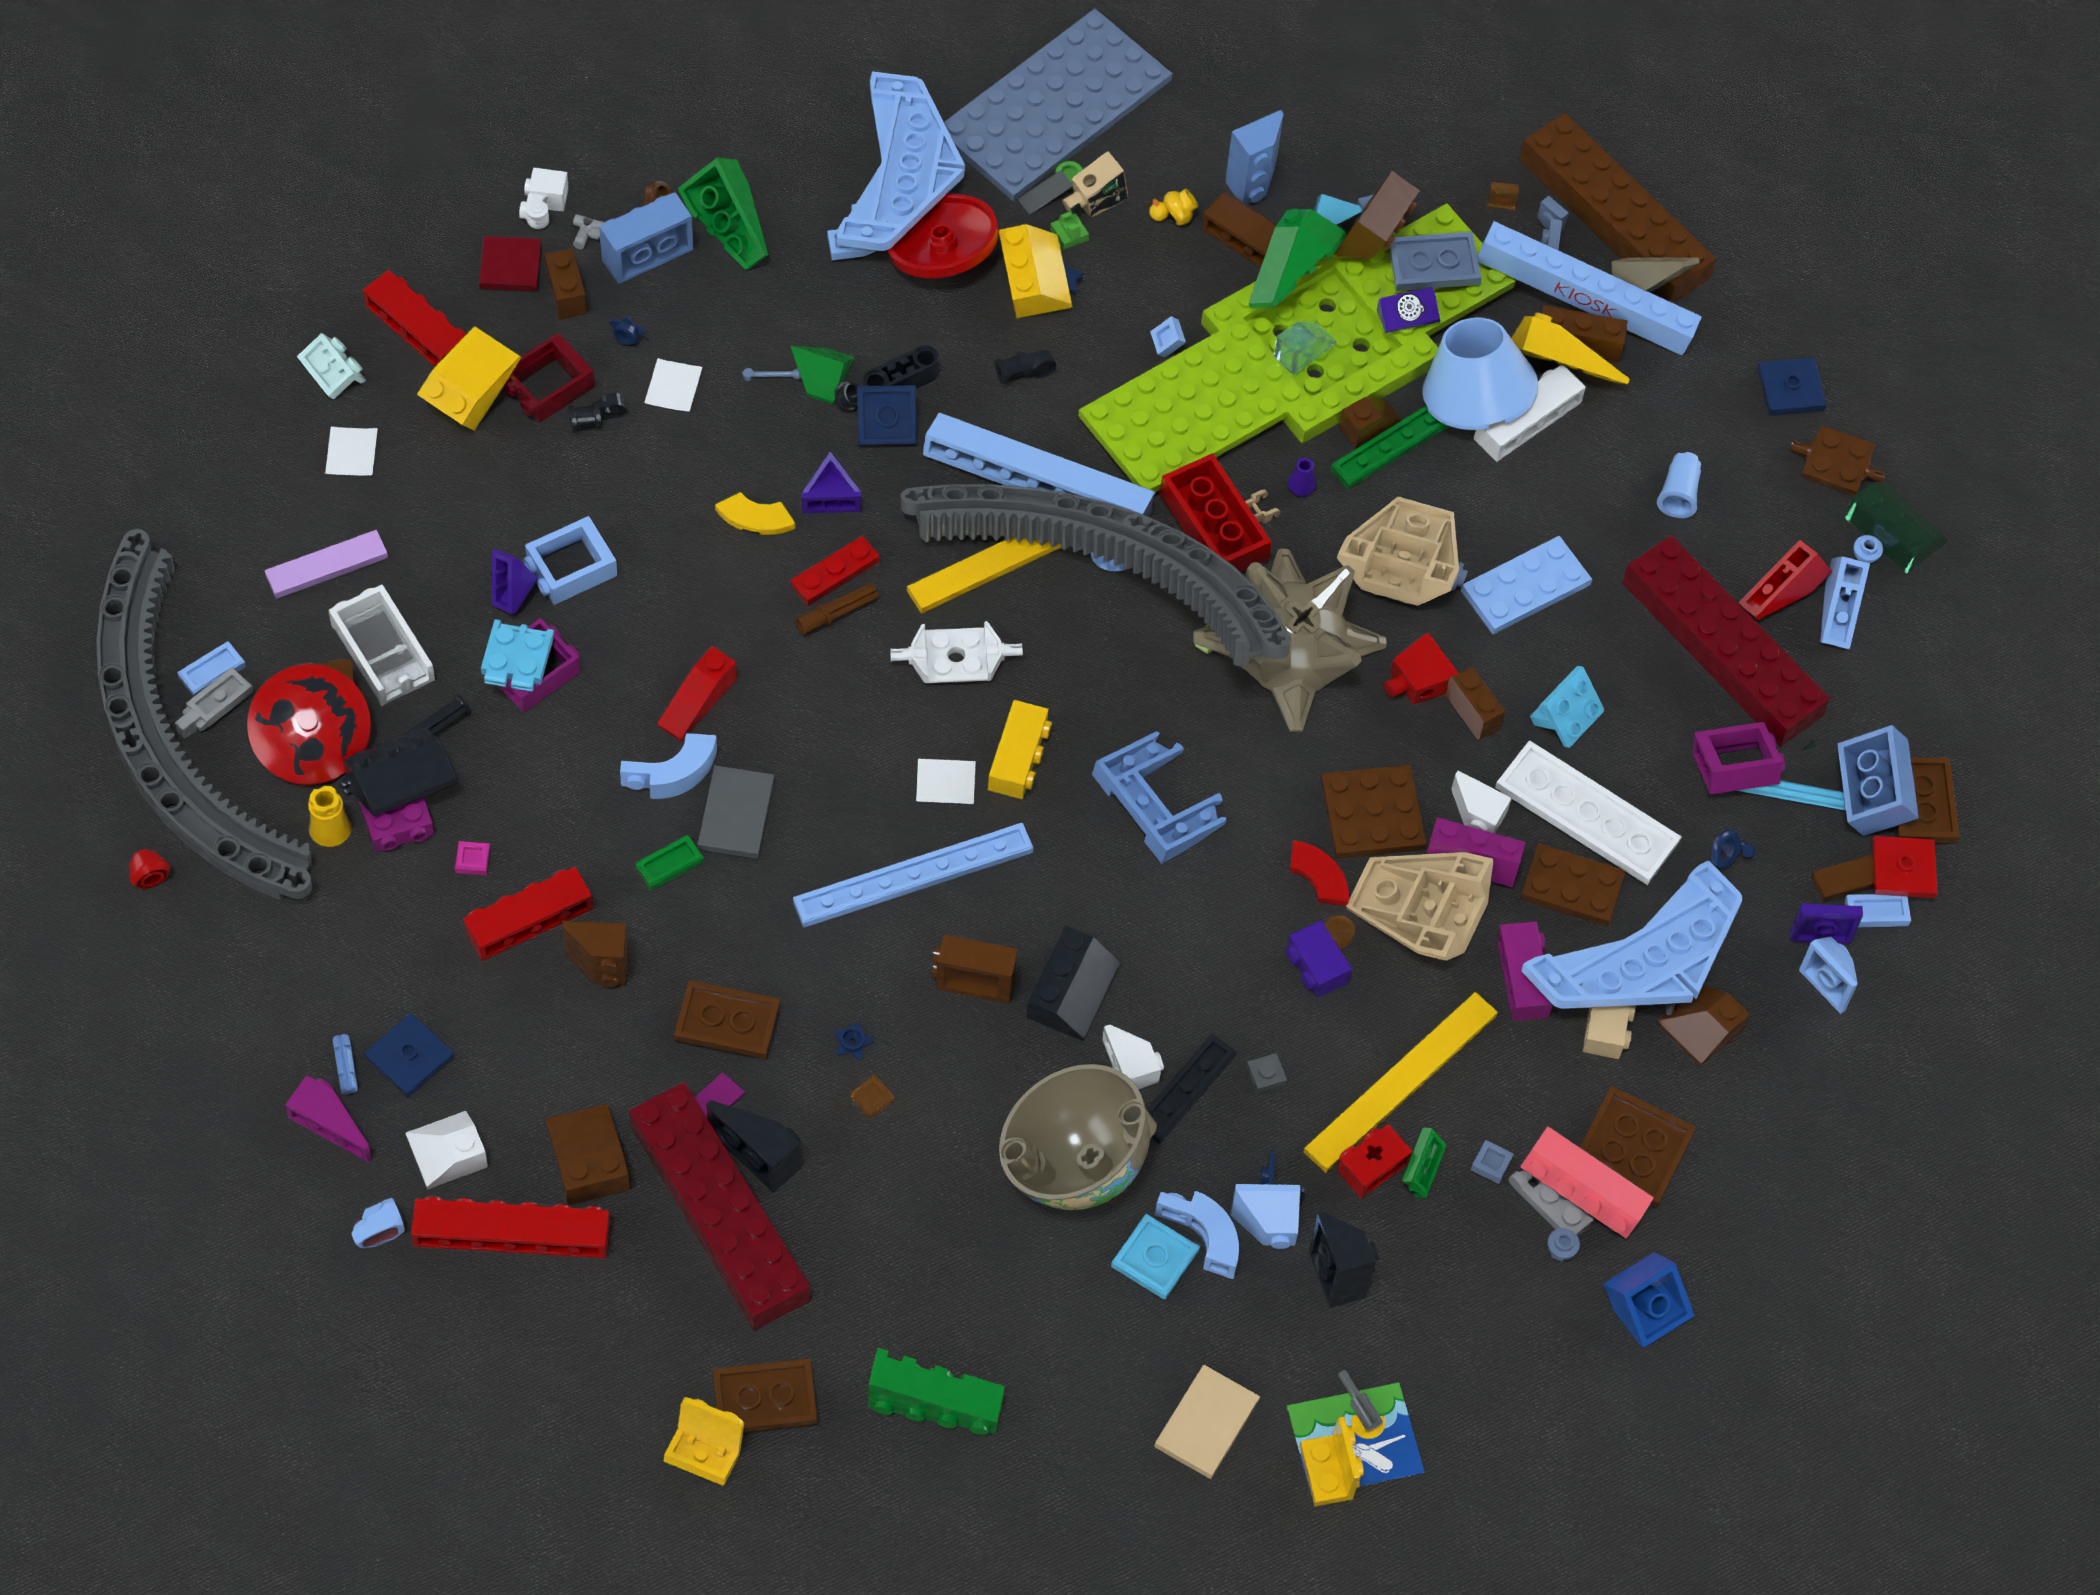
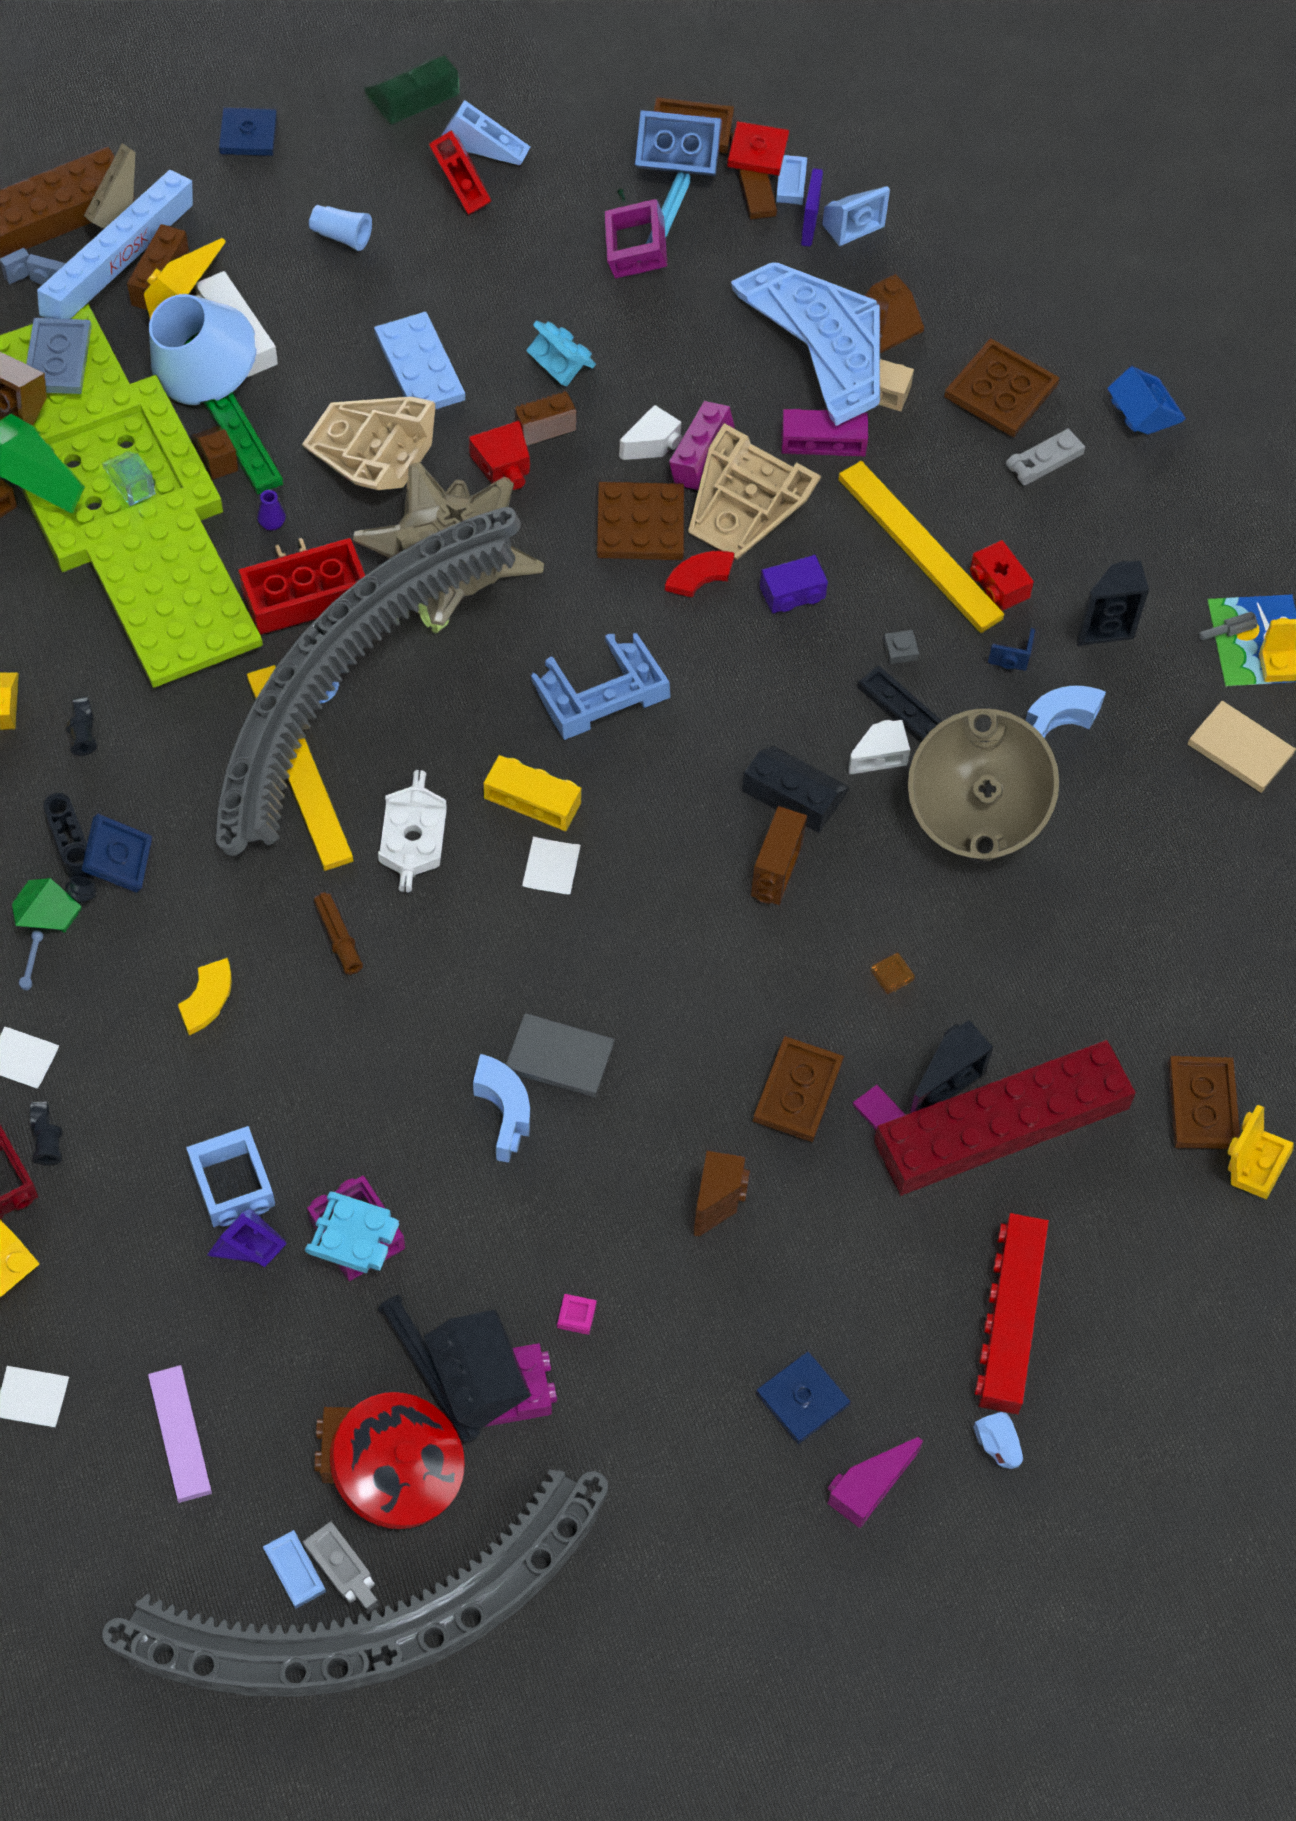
camera: 80 degrees left, 0 degrees up
(147, 869) = (547, 1651): red cone -> none
(328, 819) = (515, 1462): yellow plant -> none
(345, 1064) = (807, 1462): medium blue axle -> none
(381, 644) = (299, 1380): door -> none
(447, 1149) = (915, 1366): white slope -> none
(528, 913) = (655, 1261): red brick -> none
(588, 1154) = (934, 1232): reddish brown slope -> none
(669, 862) = (609, 1124): green tile -> none
(698, 693) = (418, 1071): red slope -> none
(831, 490) = (197, 914): dark purple slope -> none
(835, 570) = (289, 930): red plate -> none
(852, 1033) = (833, 976): dark blue plate -> none
(912, 875) = (654, 908): light blue tile -> none
(933, 1395) = (1213, 956): green wedge -> none
(1026, 466) = (209, 736): light blue brick -> none
(1155, 1256) = (1084, 760): medium azure plate -> none
(1168, 337) = (78, 596): light blue plate -> none
(1268, 1212) = (1053, 658): light blue slope -> none
(1341, 930) = (757, 563): clear orange tile -> none
(1408, 310) = (109, 387): dark purple slope -> none
(1424, 1162) = (1009, 539): green tile -> none
(1492, 1162) = (1008, 490): sand blue plate -> none
(1563, 1244) = (1093, 452): sand blue plate -> none
(1573, 885) = (739, 382): reddish brown plate -> none
(1587, 1182) = (1040, 420): coral brick -> none
(1588, 812) = (668, 359): white plate -> none
(1725, 640) = (509, 226): dark red brick -> none
(1732, 847) = (719, 265): dark blue piece -> none
(1838, 460) = (335, 114): reddish brown plate -> none
(1864, 554) = (432, 112): light blue plate -> none

